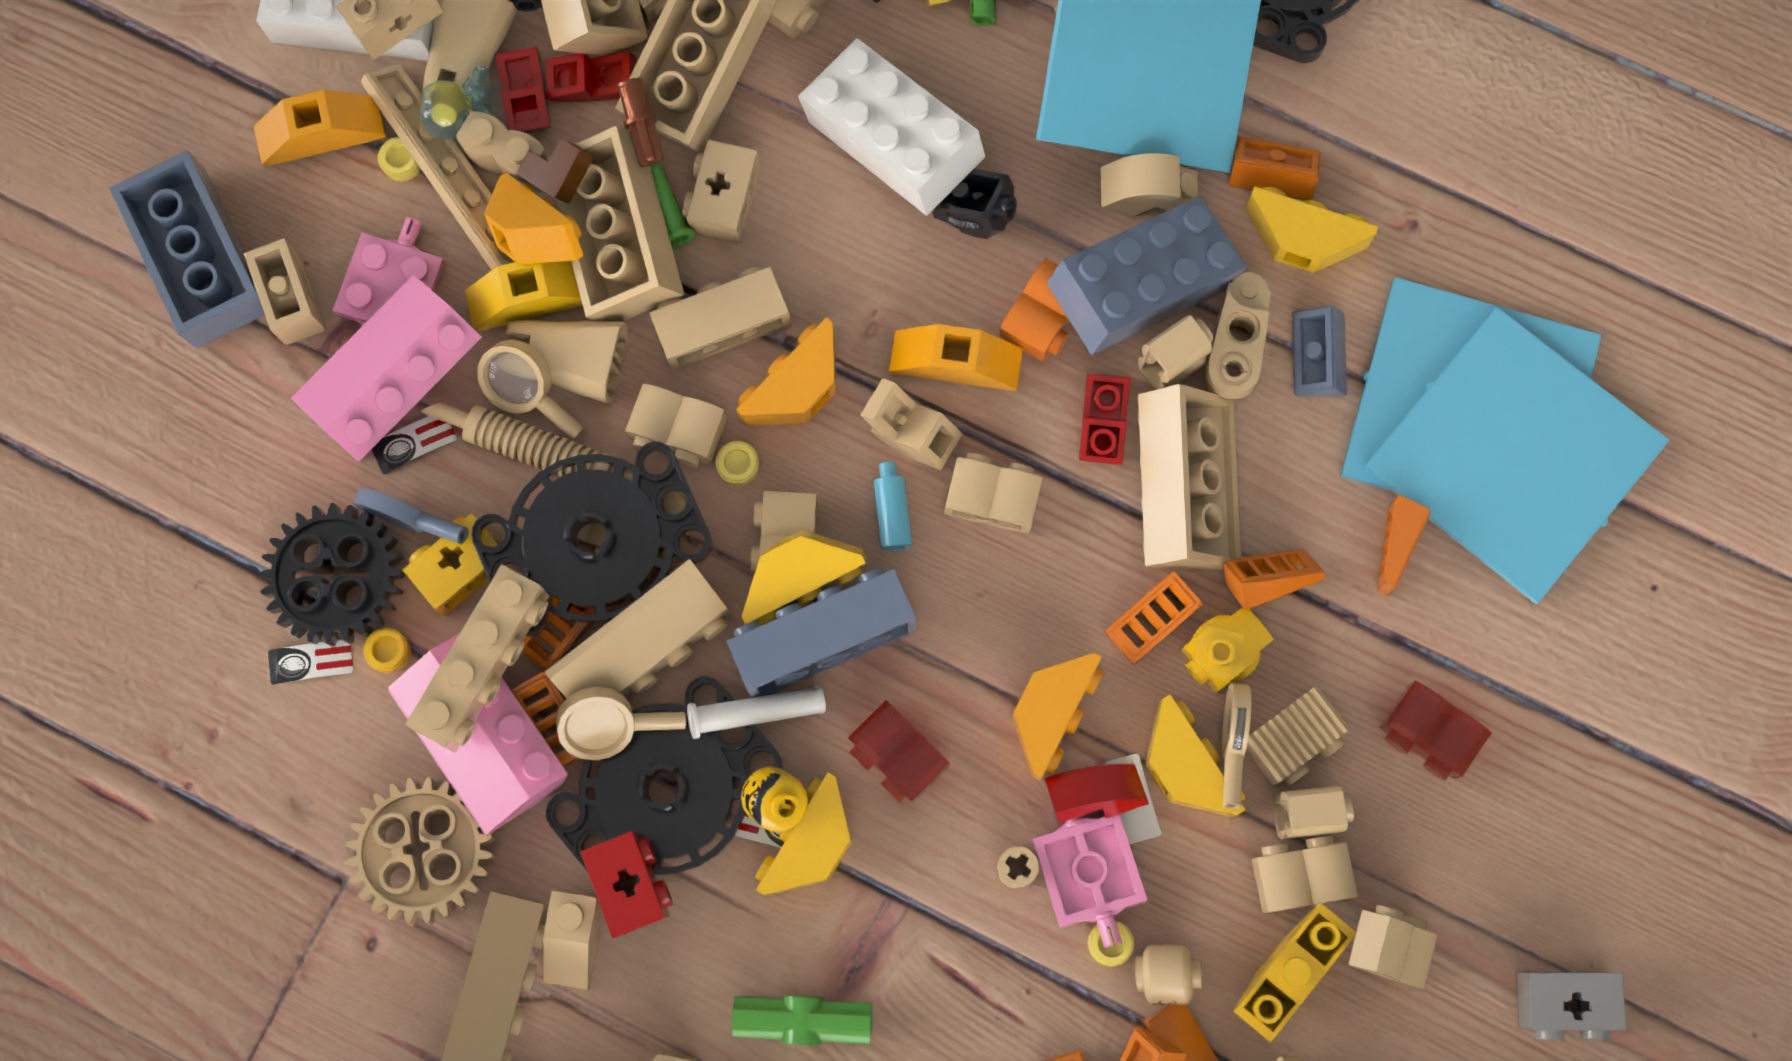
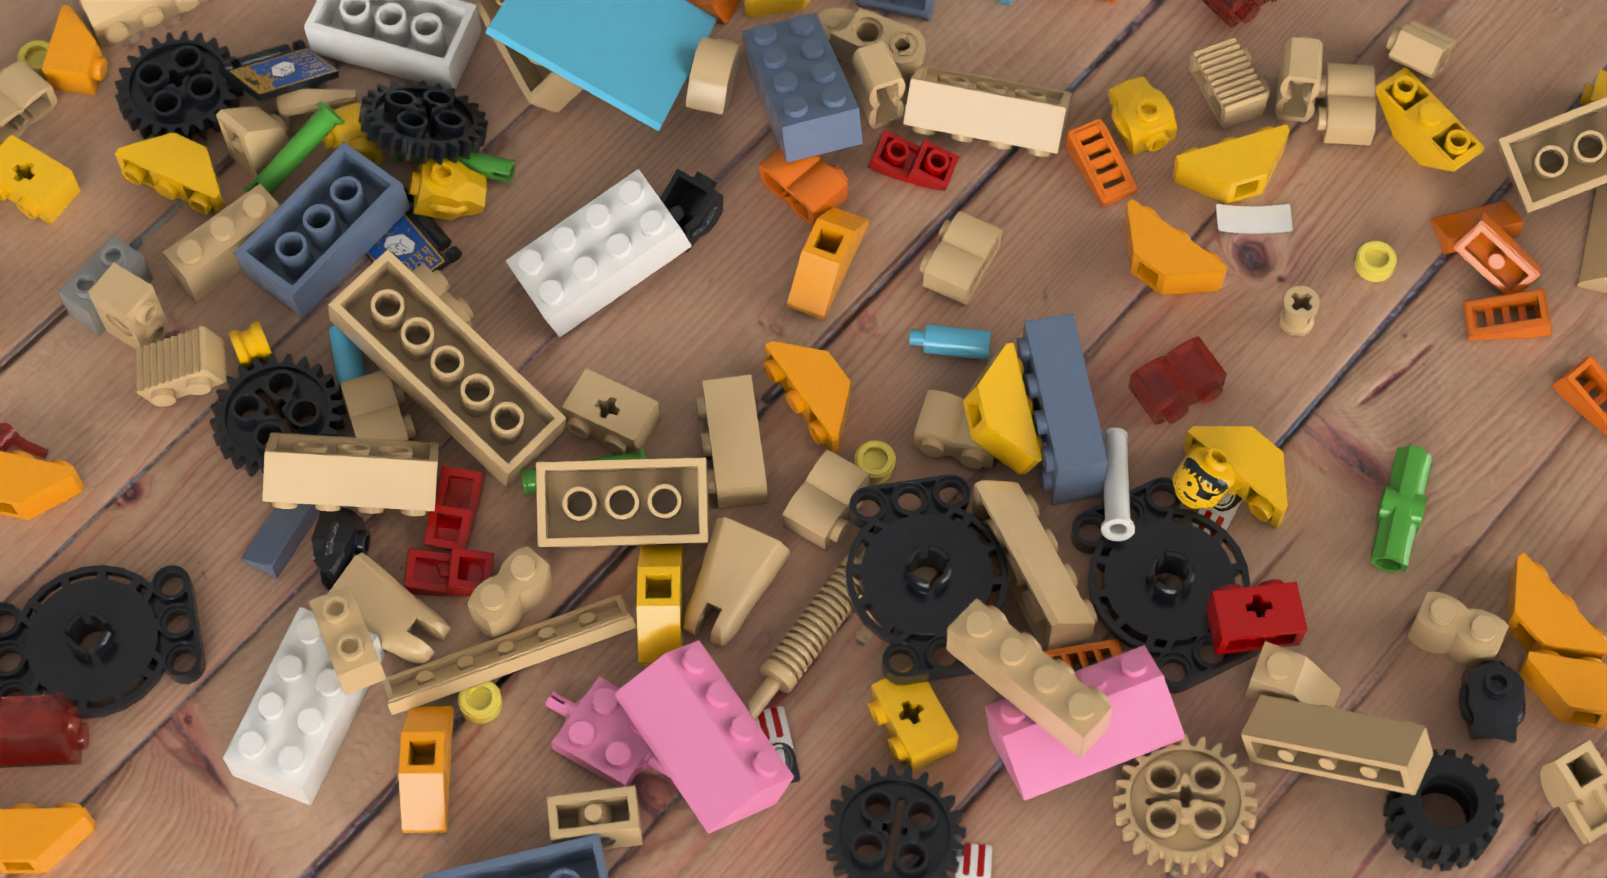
camera: 80 degrees left, 15 degrees down
(387, 650) = (980, 805): yellow tile -> none
(407, 516) = (857, 745): sand blue piece -> none
(449, 104) = (451, 625): clear light blue piece -> none
(519, 380) = (746, 624): tan piece -> none
(530, 226) = (605, 567): light orange slope -> none
(561, 173) = (566, 532): reddish brown piece -> none
(601, 723) = (1101, 604): tan piece -> none
(640, 122) = (535, 447): copper axle -> none
(909, 426) = (885, 305): tan brick -> none
(1090, 873) = (1313, 255): bright pink plate -> none
(1092, 788) = (1245, 236): red slope -> none
(1168, 974) = (1411, 219): tan head -> none
(1234, 740) = (1217, 117): tan piece -> none
(1265, 578) = (1088, 88): orange slope -> none

